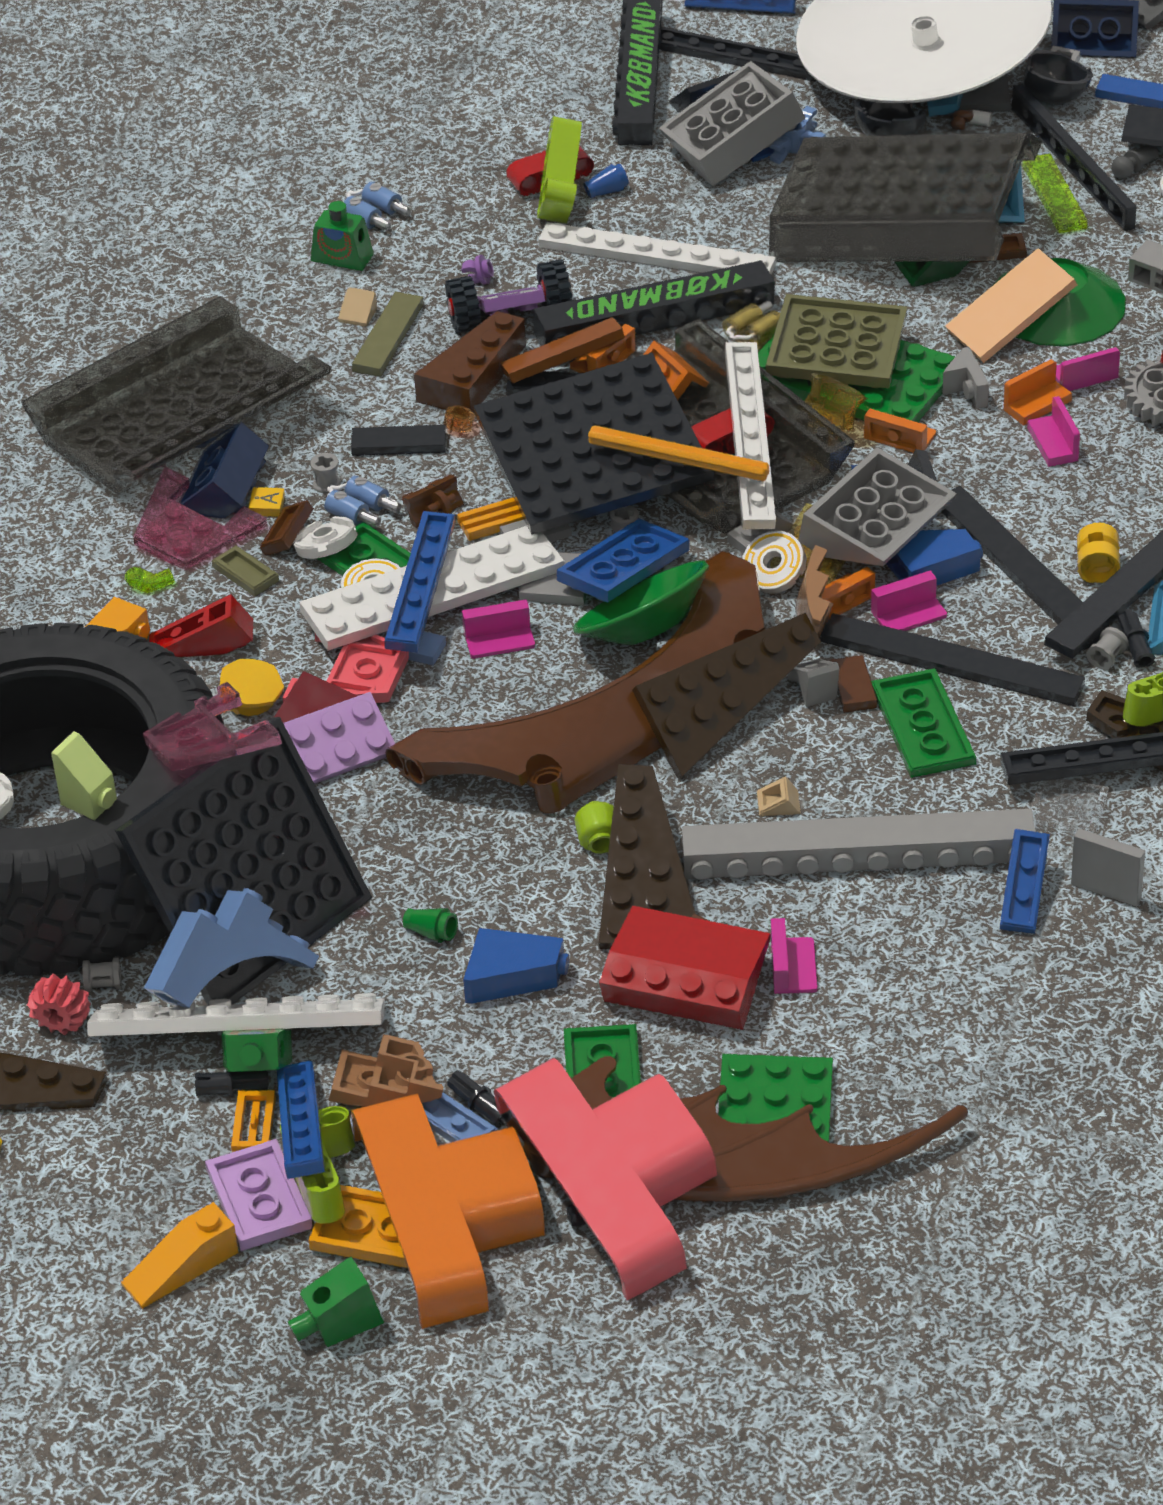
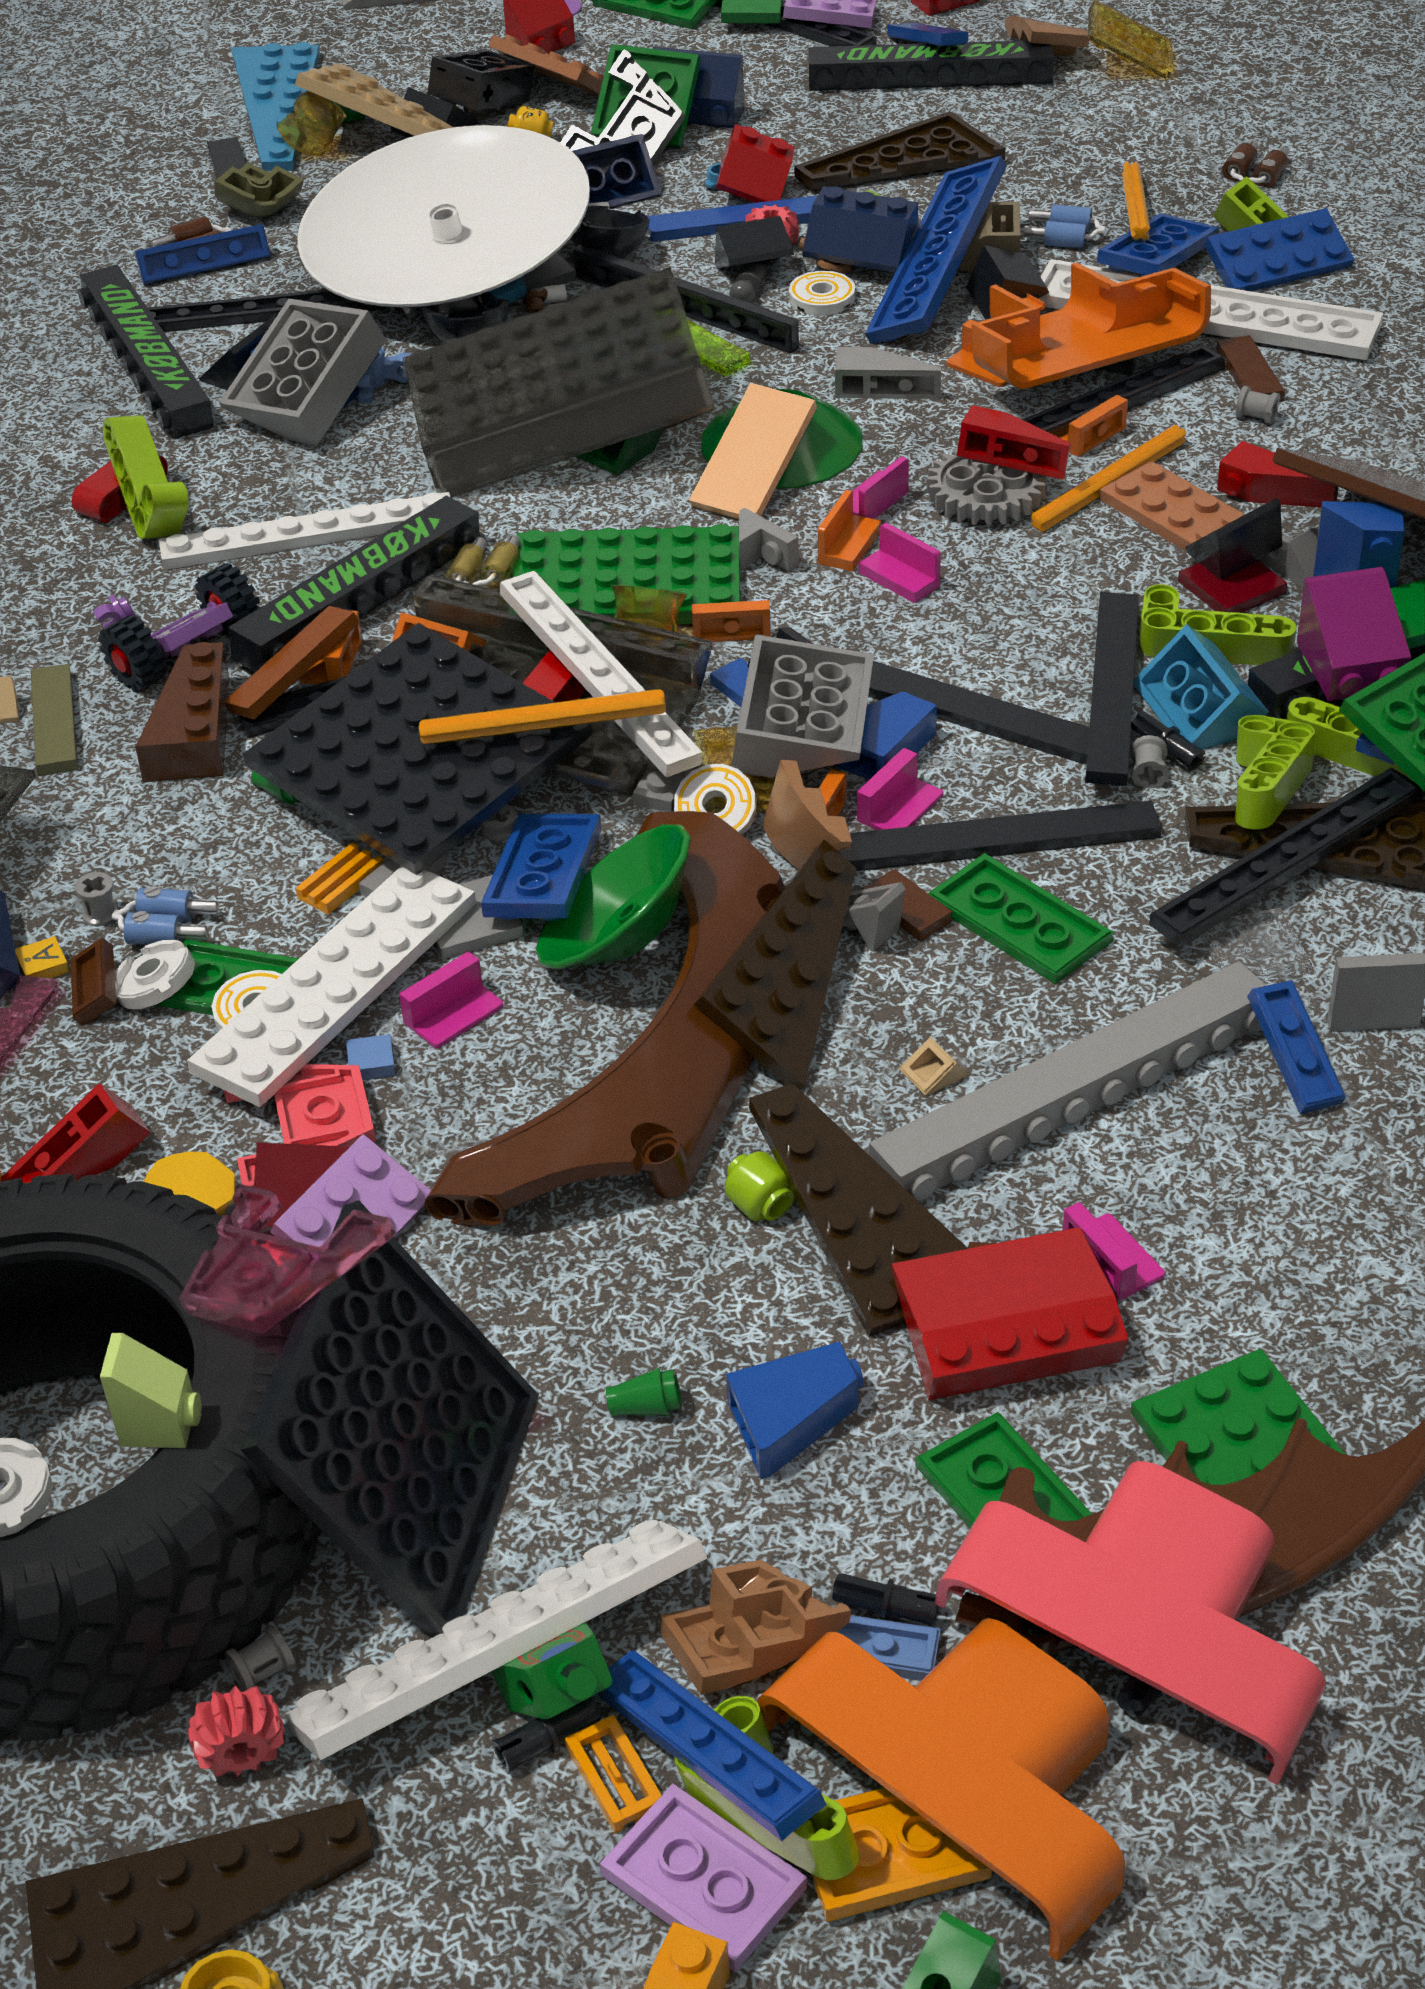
camera: 30 degrees left, 0 degrees up
(210, 943) = (423, 1546): medium blue arch -> none
(245, 570) = (72, 1052): olive tile -> none
(398, 440) = (156, 831): black tile -> none
(420, 582) = (328, 980): blue tile -> none
(438, 496) = (256, 883): reddish brown hips -> none
(459, 419) = (215, 781): clear orange tile -> none
(607, 181) = (200, 472): blue cone -> none
(837, 339) = (600, 545): olive plate -> none
(1098, 552) = (1056, 667): yellow wheel -> none

